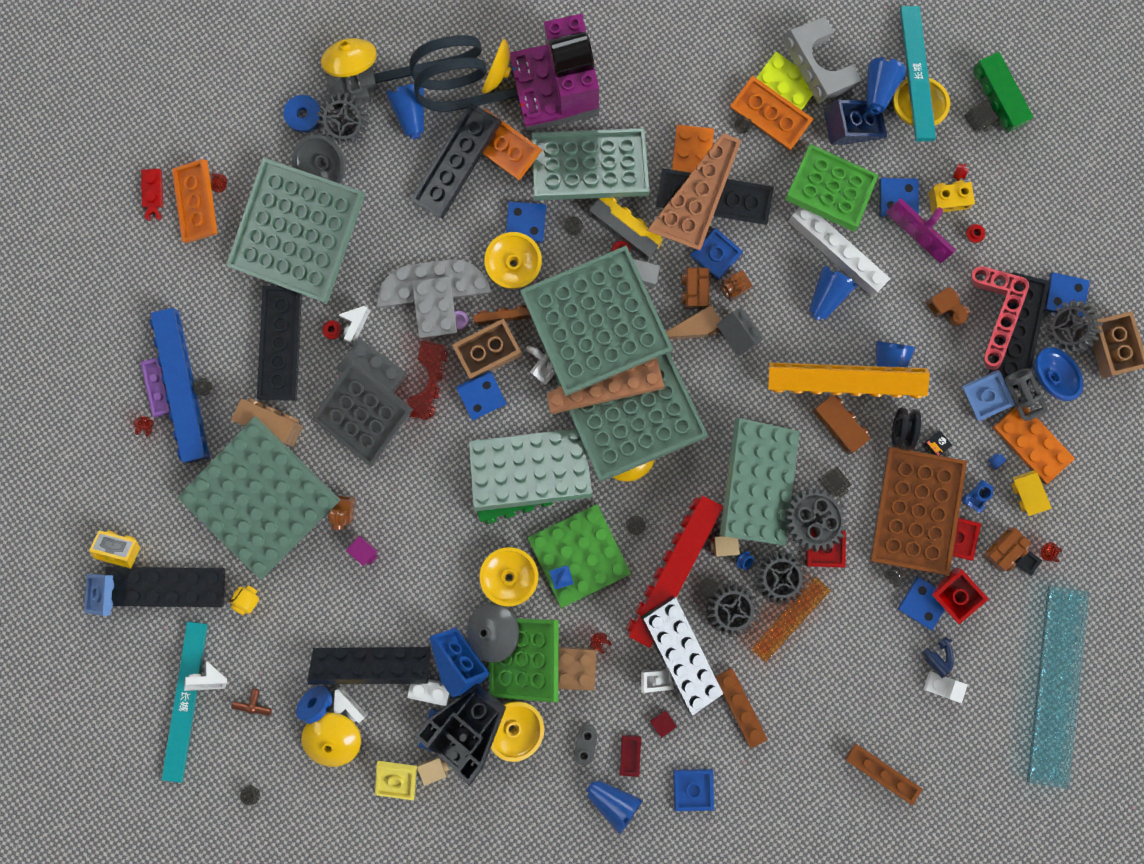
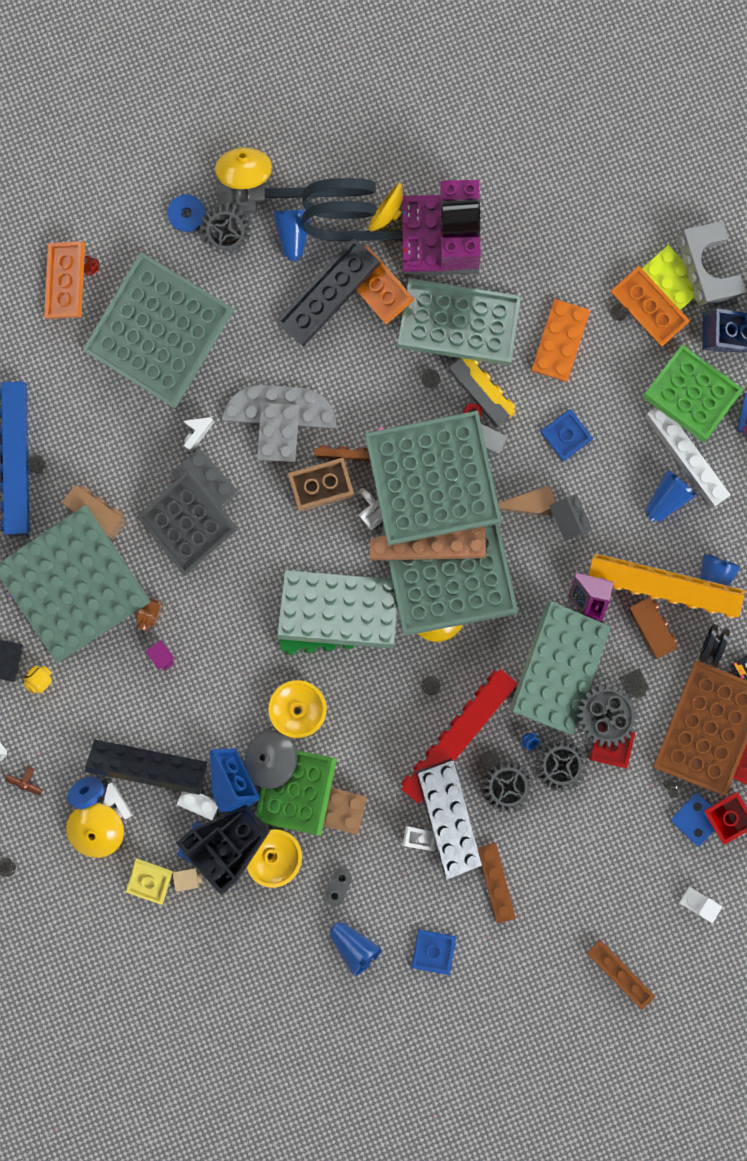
camera: 15 degrees right, 0 degrees up
(152, 192) = (23, 261): red plate -> none
(279, 344) = (119, 437): black plate -> none
(309, 157) = (184, 260): dark grey dish -> none
(337, 332) = (175, 439): red plate -> none
(432, 356) = (265, 480): clear red arch -> none
(462, 320) = (302, 450): lavender tile -> none
(481, 395) = (306, 528): blue tile -> none
(509, 248) = (368, 389): yellow dish -> none
(527, 219) = (384, 365): blue tile -> none
(561, 577) = (348, 720): blue tile -> none
(588, 550) = (369, 703): bright green plate -> none
(598, 640) = (370, 789): clear red plate -> none
(630, 755) = (379, 906): dark red tile -> none
(663, 723) = (417, 882): dark red tile -> none
(694, 204) = (552, 383): nougat wing -> none
(696, 288) = (539, 465): dark orange brick -> none
(724, 546) = (513, 723): tan brick -> none
(736, 285) = (578, 470): dark orange brick -> none
(737, 202) = (575, 379): black plate -> none
(775, 404) = (591, 595): none -> magenta slope
(790, 619) = (562, 807): clear orange plate -> none
(941, 667) = (696, 879): dark blue plant -> none

